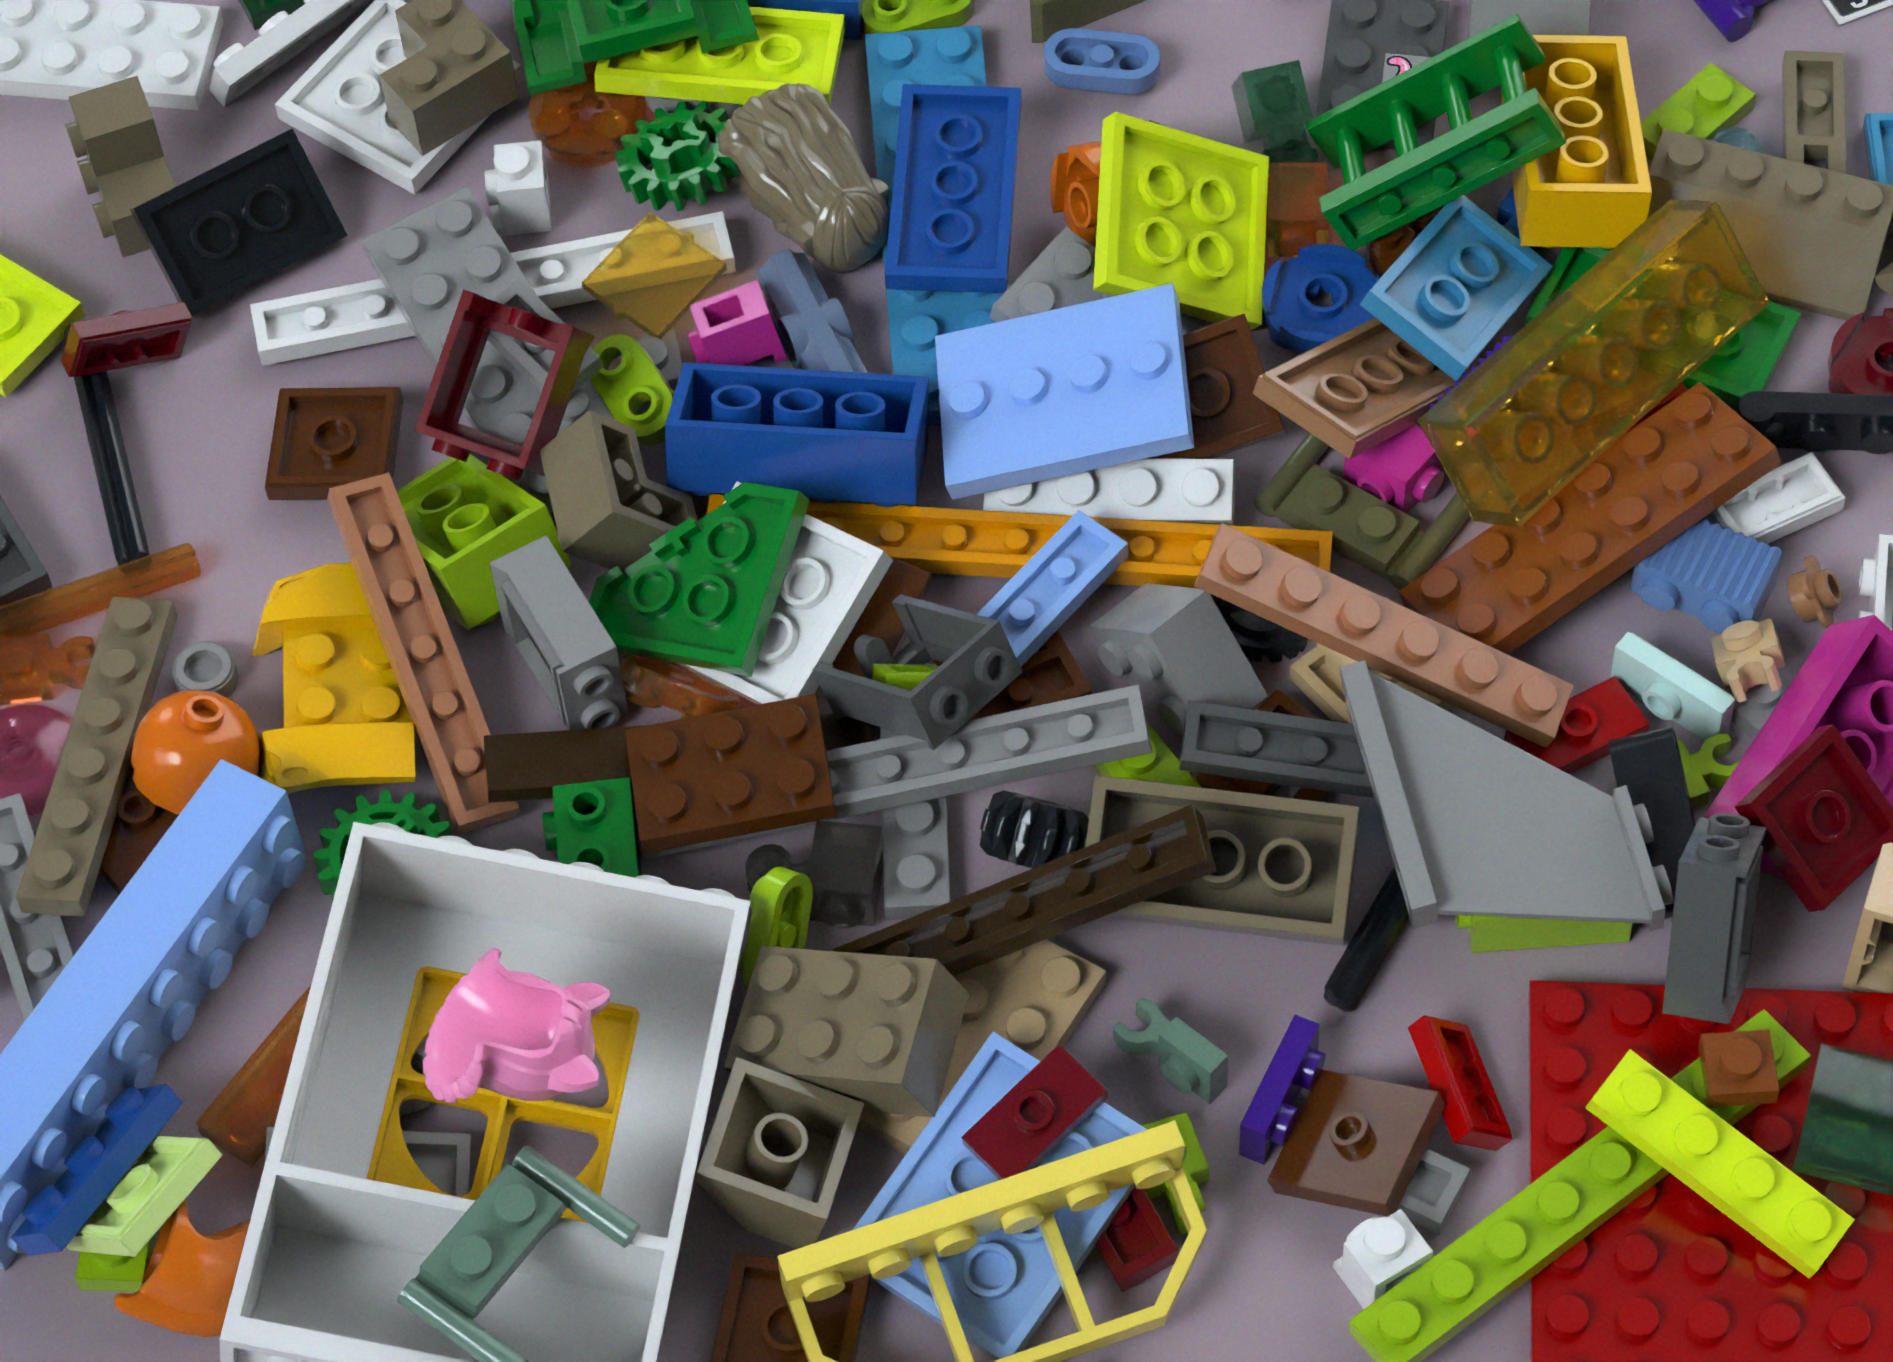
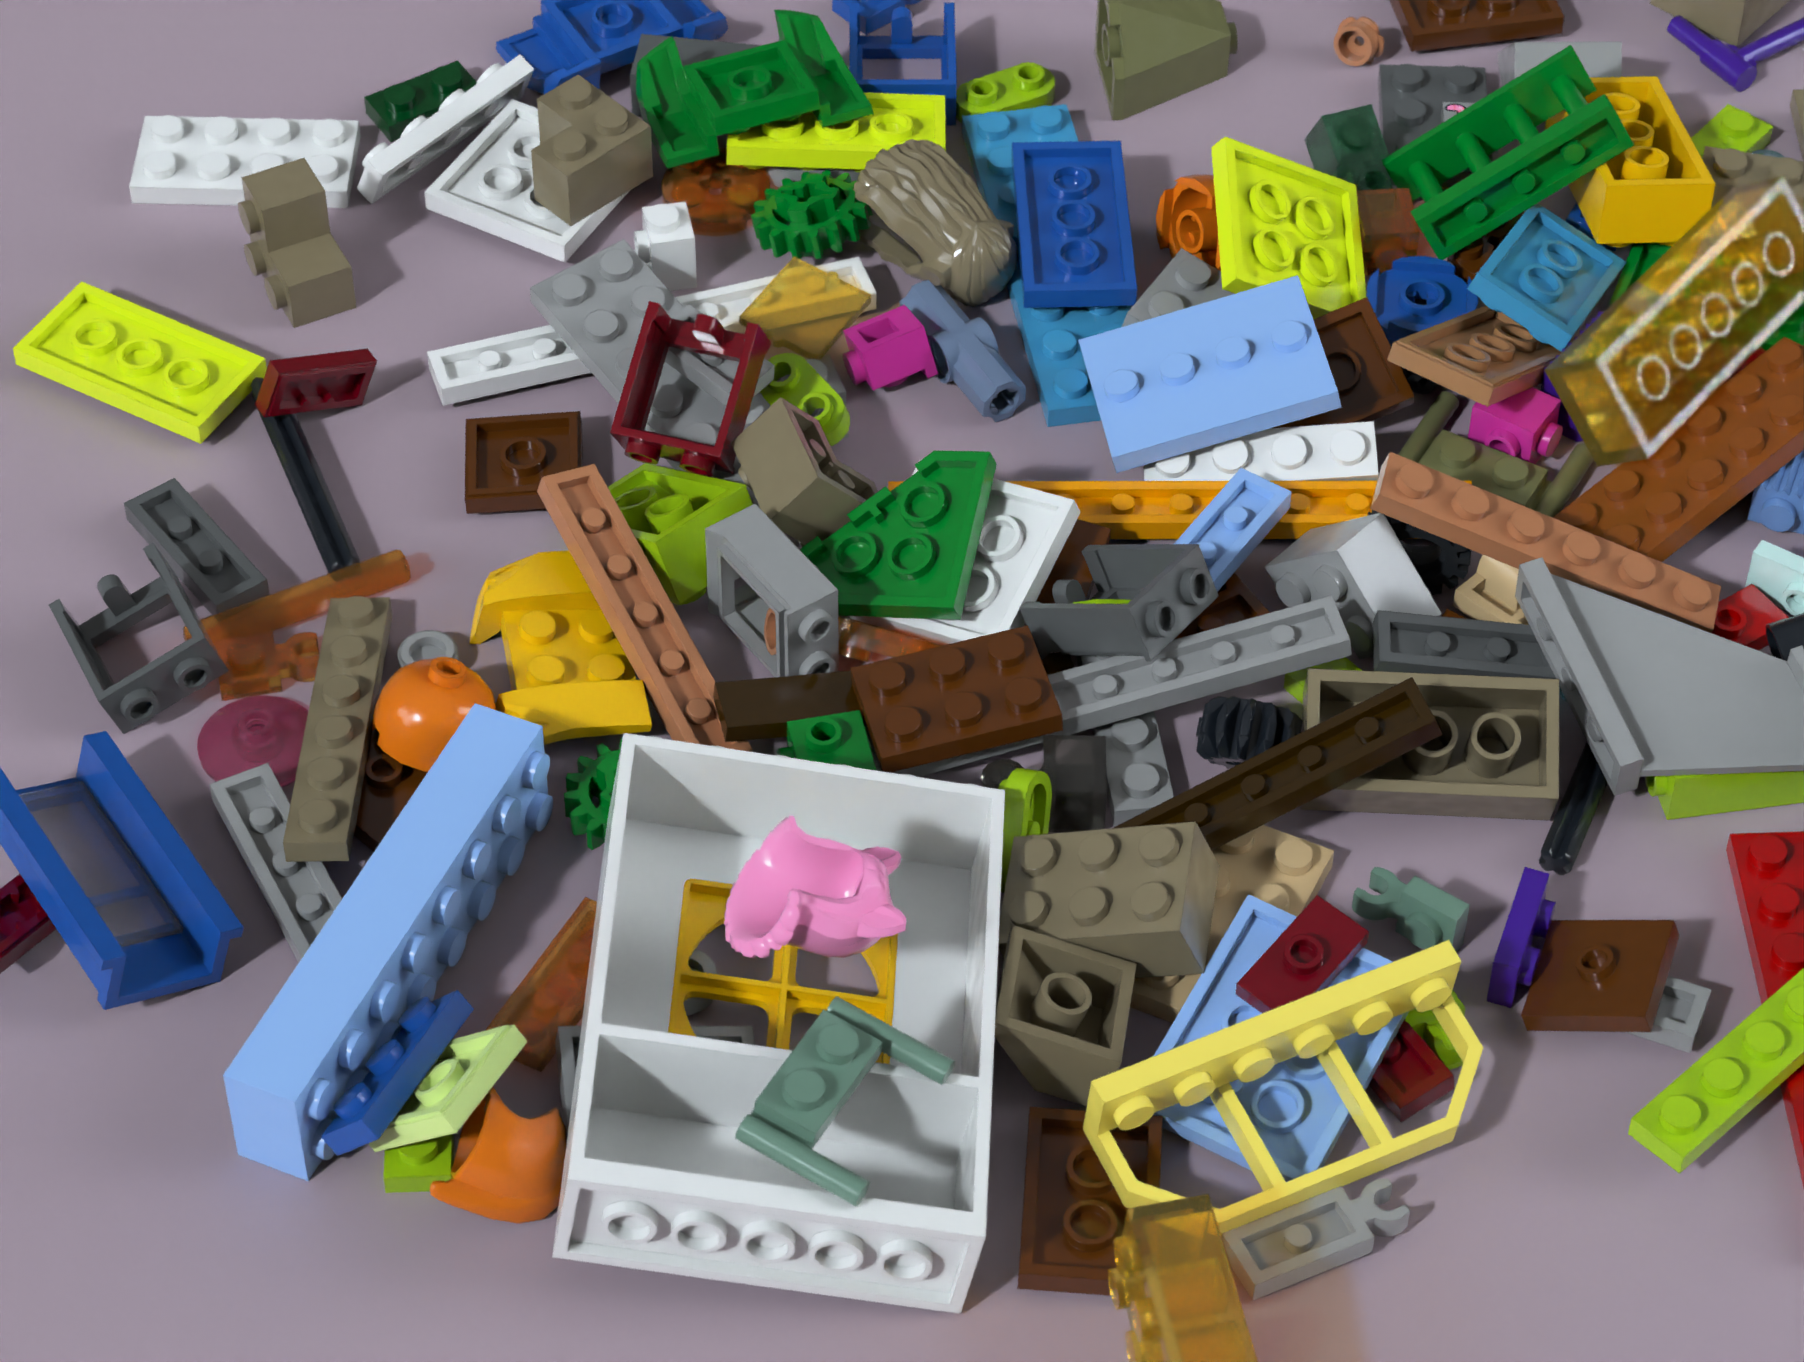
camera: 10 degrees left, 10 degrees down
(239, 222) = (408, 283): black plate -> none
(799, 432) = (1023, 417): blue brick -> none
(1103, 61) = (1180, 126): medium blue plate -> none
(1379, 1254) = (1643, 1065): white brick -> none
(1461, 1079) = (1698, 936): red plate -> none

